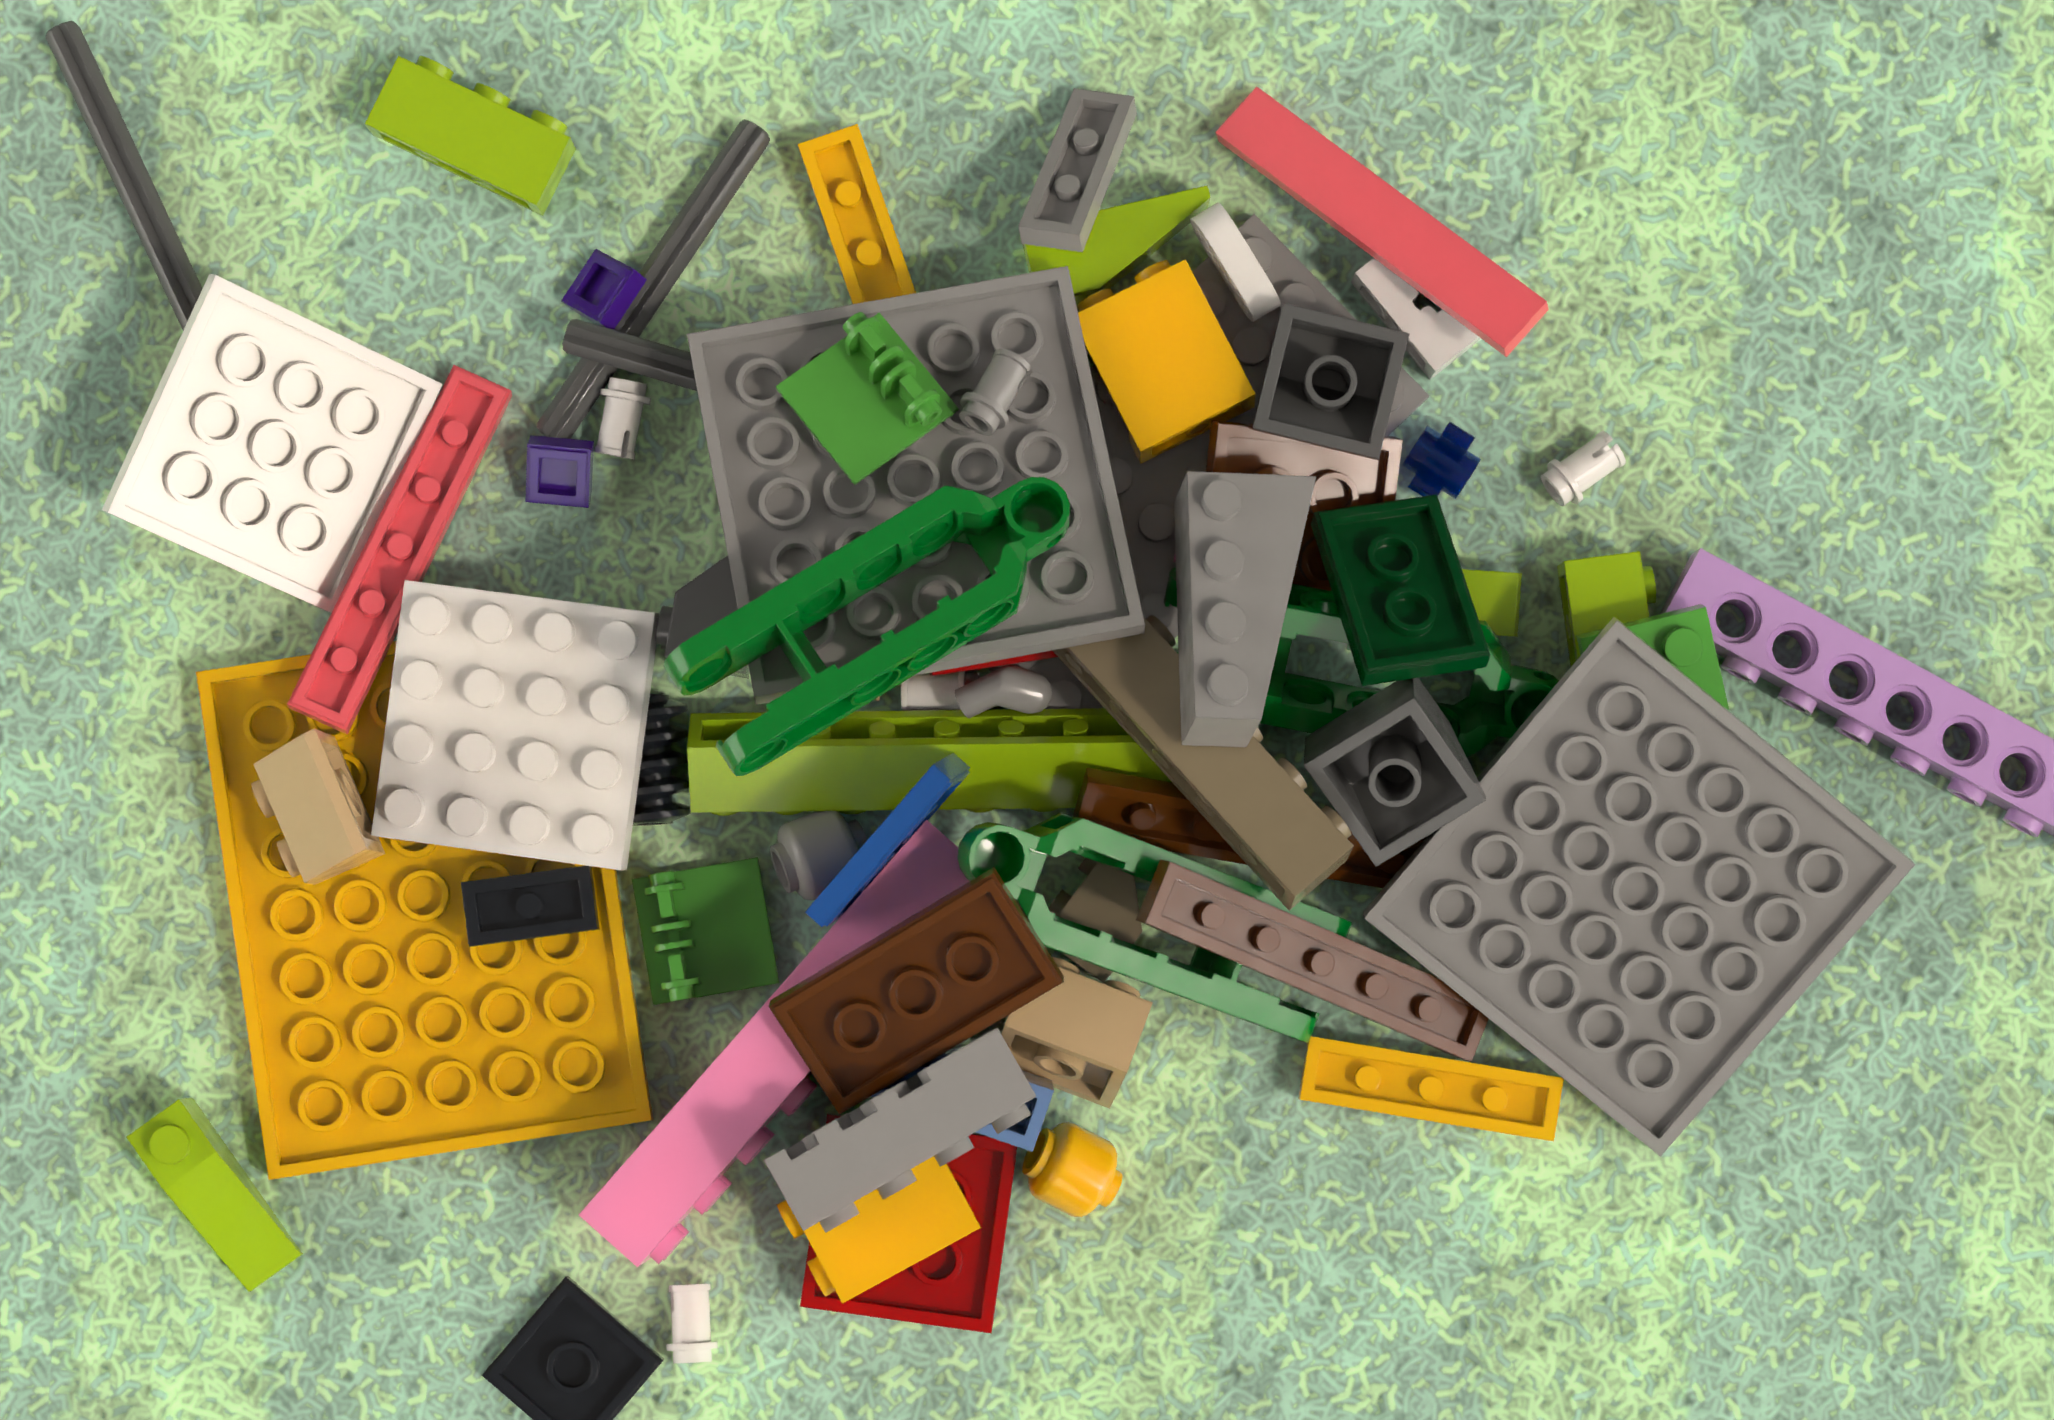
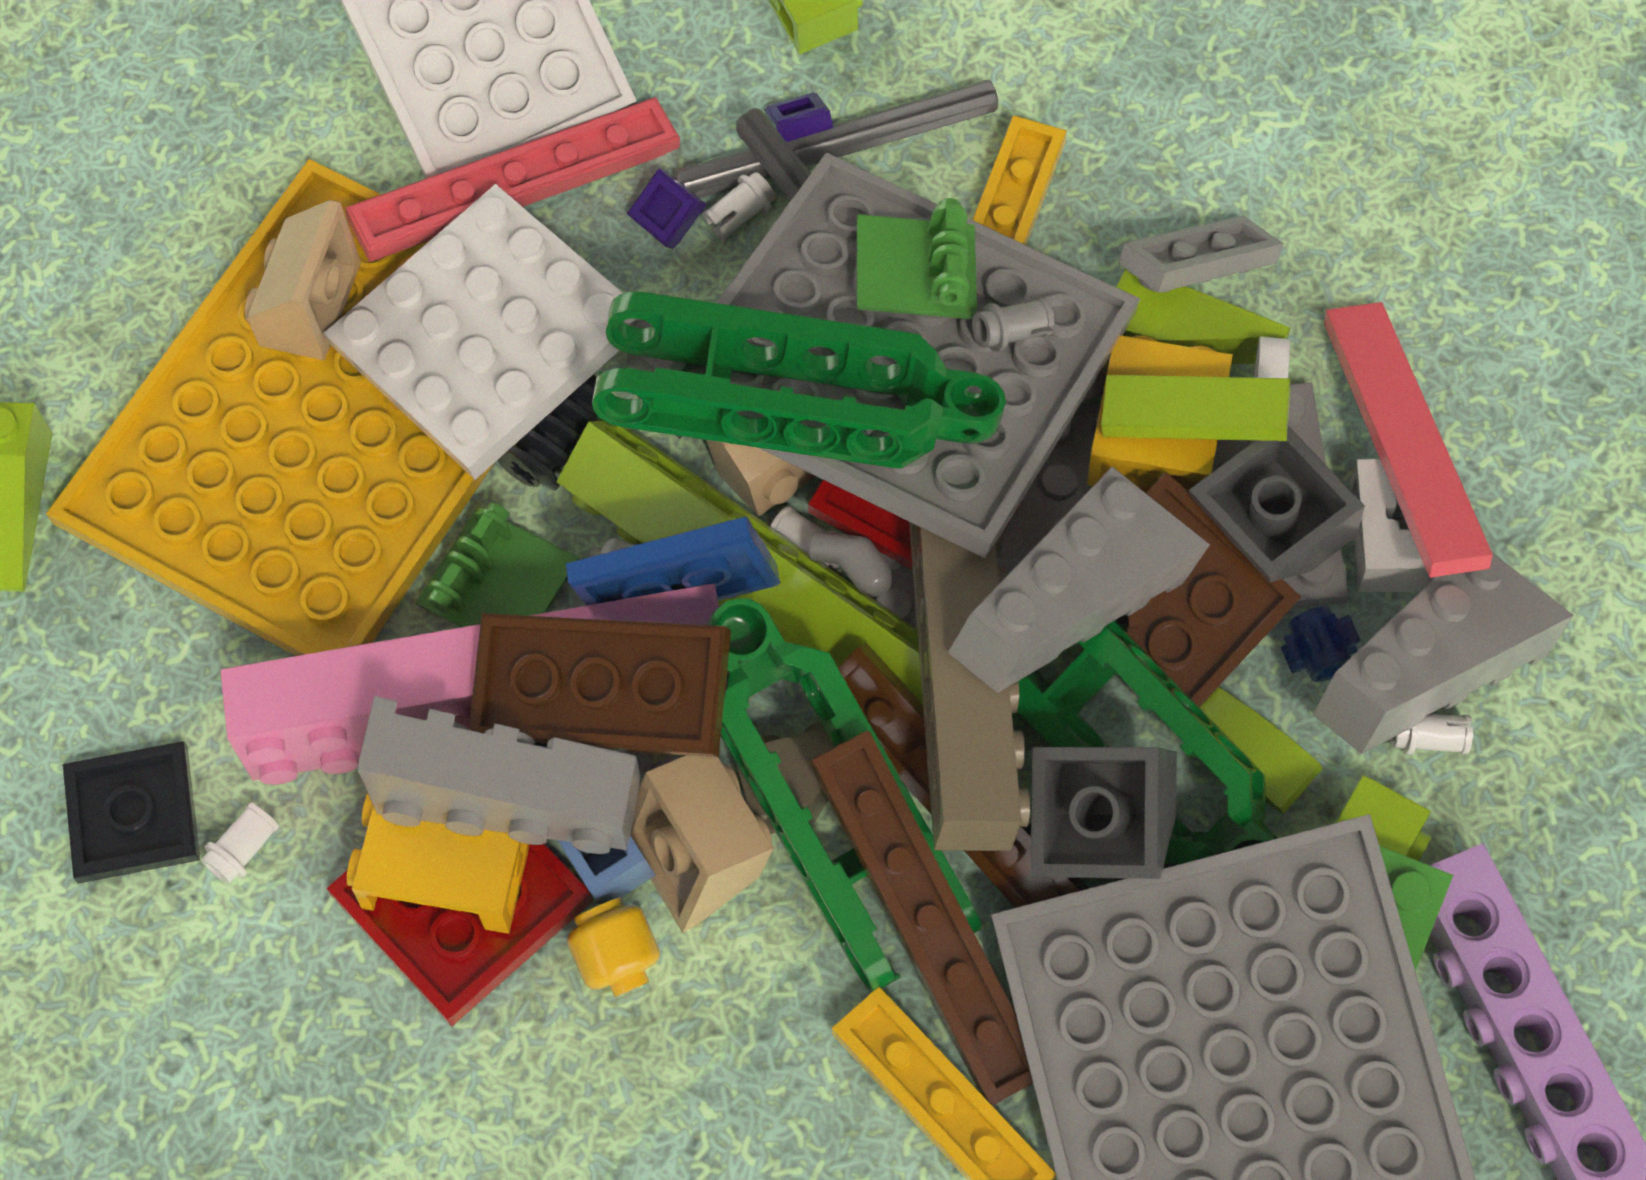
camera: 45 degrees right, 20 degrees down
(530, 906) = (387, 457): black plate -> none
(1202, 346) = (1196, 407): none -> lime tile
(1400, 590) = (1212, 688): dark green tile -> none
(1548, 406) = (1439, 650): none -> light grey wedge

